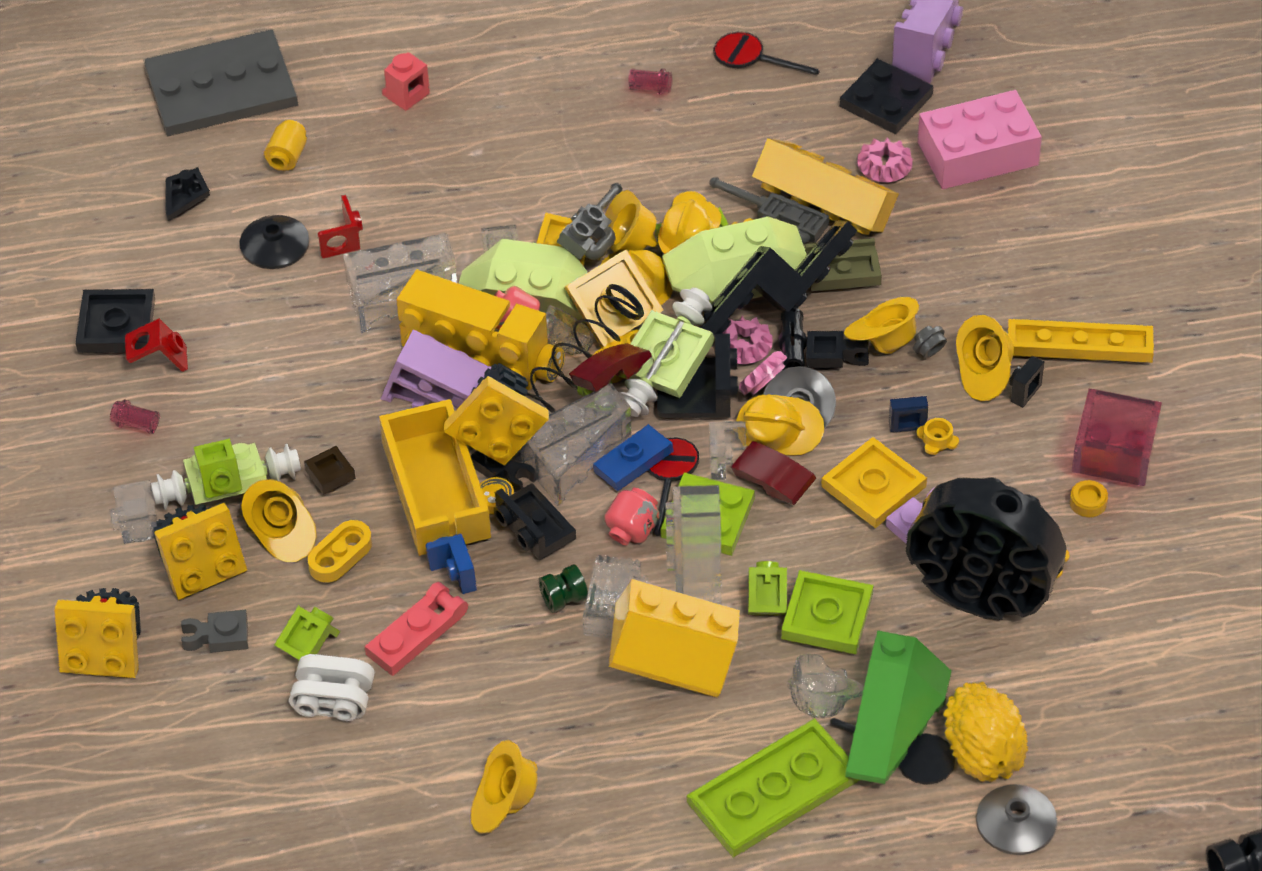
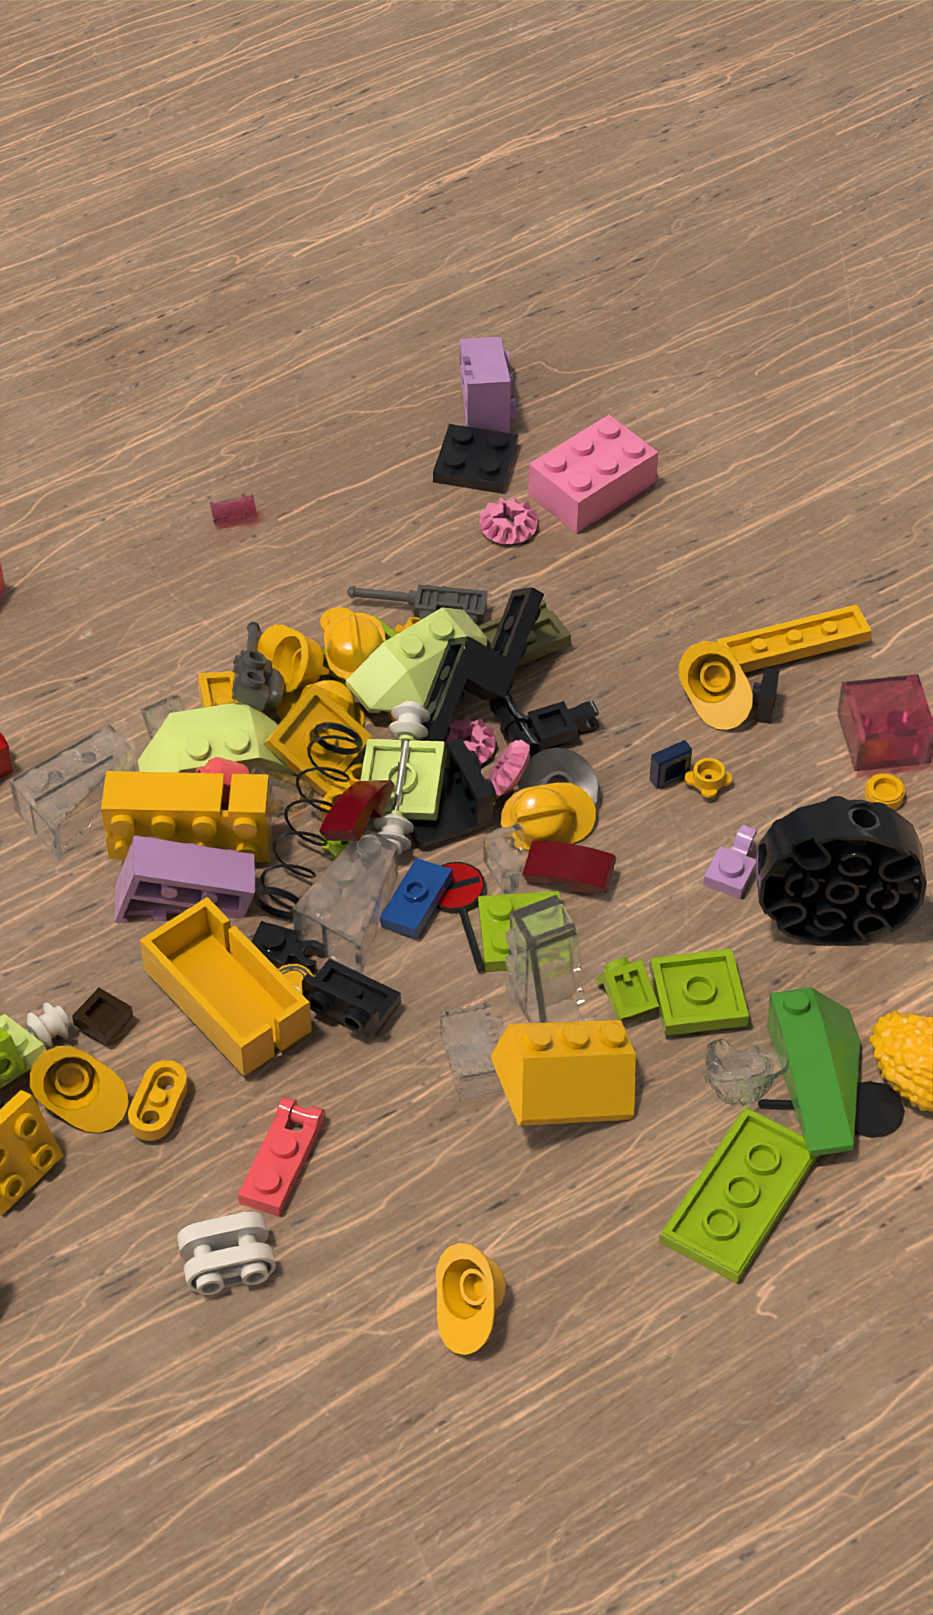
camera: 25 degrees left, 0 degrees up
(222, 632) = (68, 1232): dark grey plate -> none
(306, 632) = (168, 1203): lime bracket -> none
(453, 554) = (292, 1065): blue bracket -> none
(497, 415) = (271, 896): yellow plate -> none
(545, 360) = (278, 826): yellow tile -> none
(563, 588) = (418, 1059): dark green wheel -> none
(632, 516) = (451, 959): coral head -> none
(745, 49) = (309, 454): piece -> none
(825, 185) = (466, 562): yellow wedge -> none
(873, 482) = (672, 844): yellow plate -> none
(887, 325) = (604, 680): yellow piece -> none
(929, 341) = (651, 685): dark grey plate -> none

